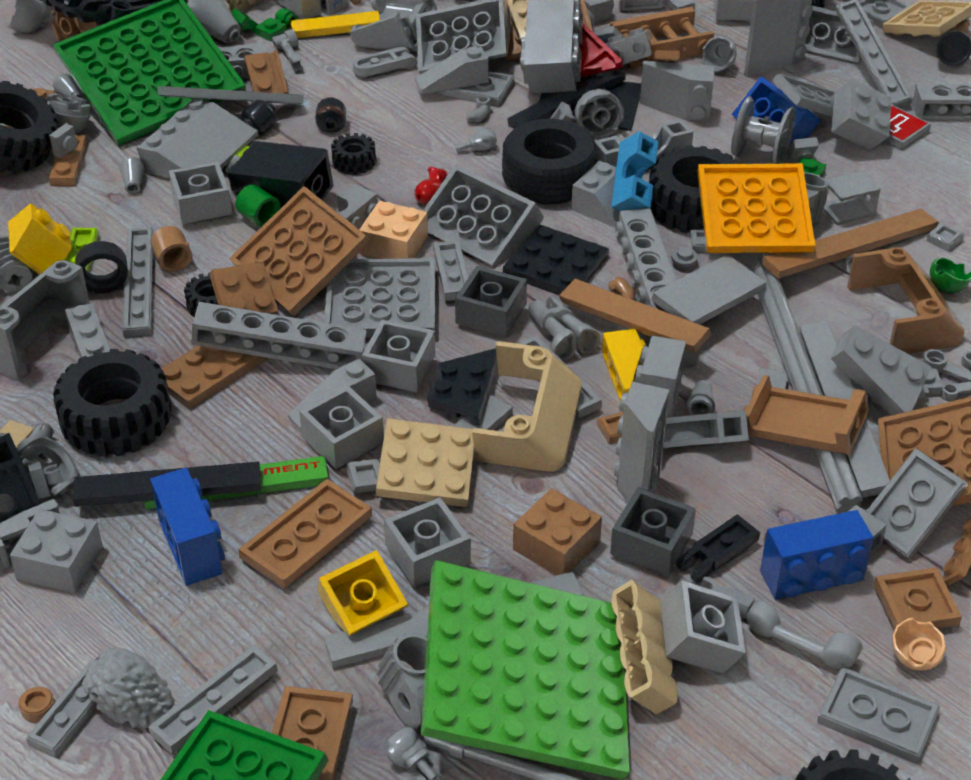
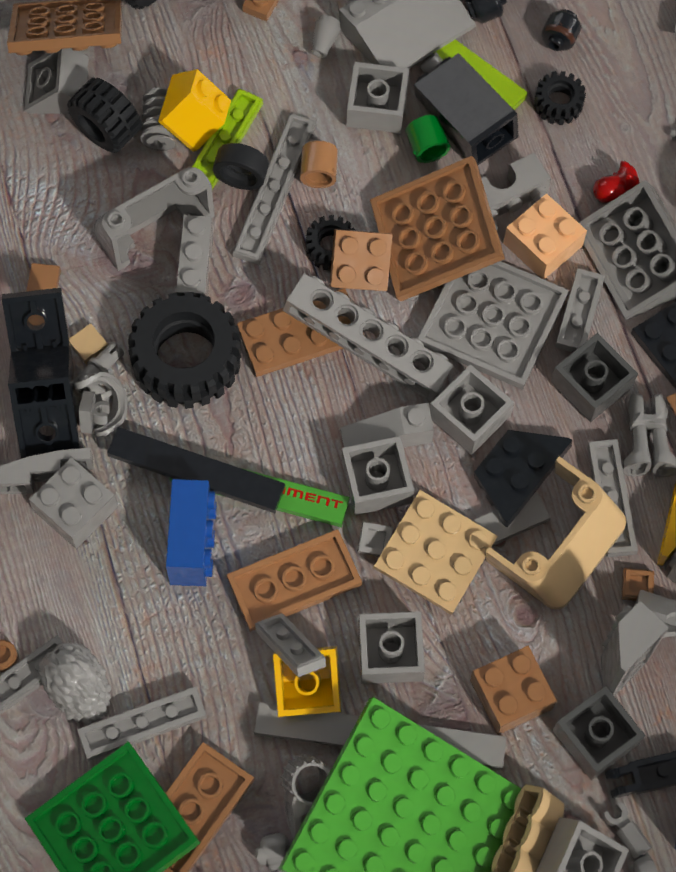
camera: 25 degrees right, 25 degrees up
(332, 563) = (290, 645): none -> light grey tile

